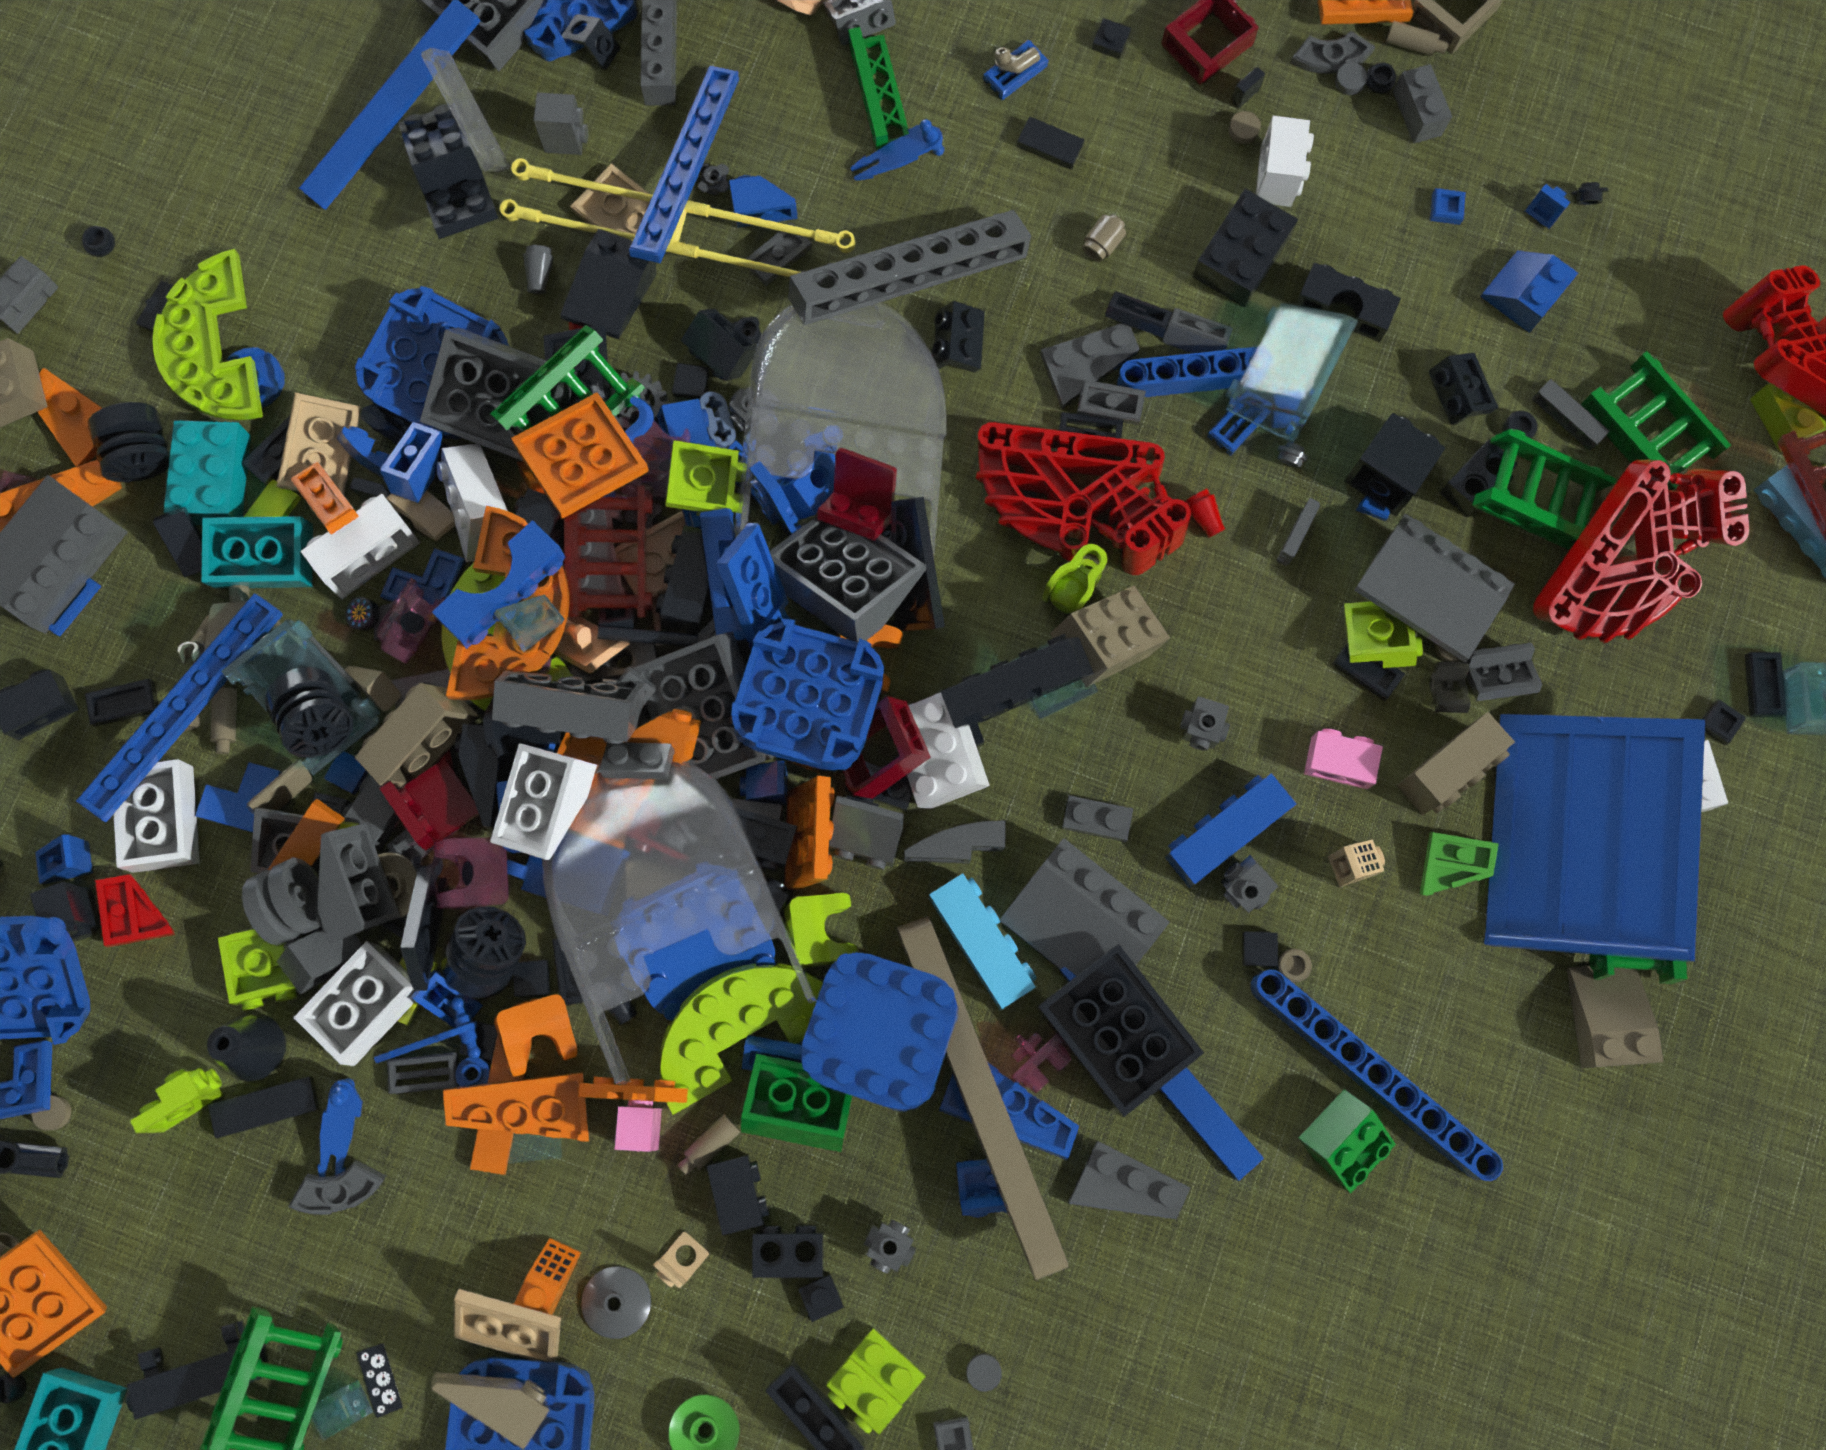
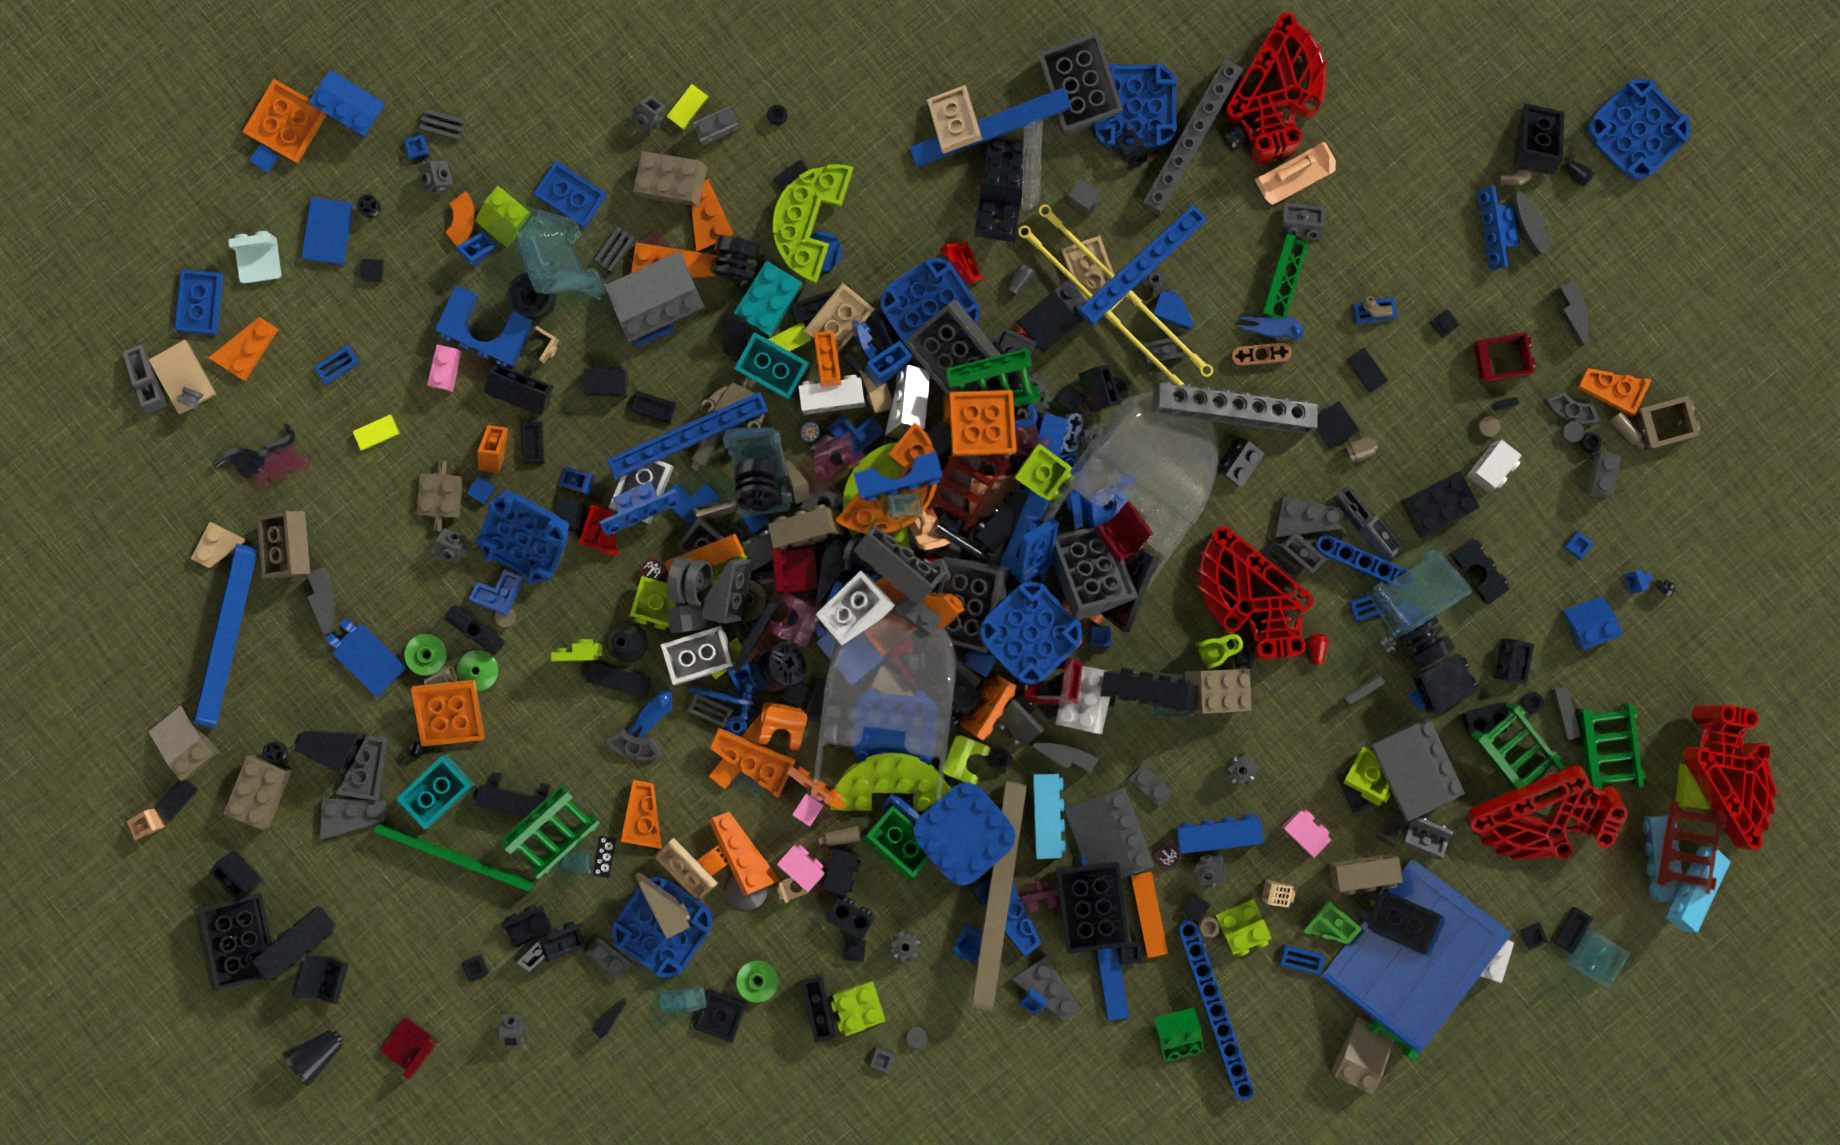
camera: 35 degrees right, 10 degrees up
(63, 1211) = (486, 664): none -> bright green dish
(156, 841) = (638, 505): none -> blue bracket
(231, 921) = (652, 568): none -> clear pink tile
(337, 119) = (954, 119): none -> tan tile
(402, 1287) = (641, 817): none -> orange wing
(446, 284) = (963, 261): none -> red wing
(583, 1258) = (744, 859): none -> orange wing
(676, 1222) = (801, 867): none -> bright pink brick
(880, 912) = (994, 762): none -> black plate
(882, 200) = (1276, 358): none -> medium nougat beam
(911, 661) = (1100, 636): none -> blue tile
(1053, 230) = (1335, 425): none -> black piece
(1118, 577) = (1245, 658): none -> black wheel
(1118, 1218) = (1033, 1002): none -> blue tile
(1179, 901) = (1168, 856): none -> clear pink tile
(1203, 997) = (1149, 914): none -> orange tile
(1211, 1066) = (1131, 953): none -> black plate
(1340, 422) = (1427, 644): none -> black wheel
(1341, 938) = (1243, 927): none -> lime plate
(1419, 943) = (1284, 955): none -> blue tile
(1543, 798) = (1401, 920): none -> black tile

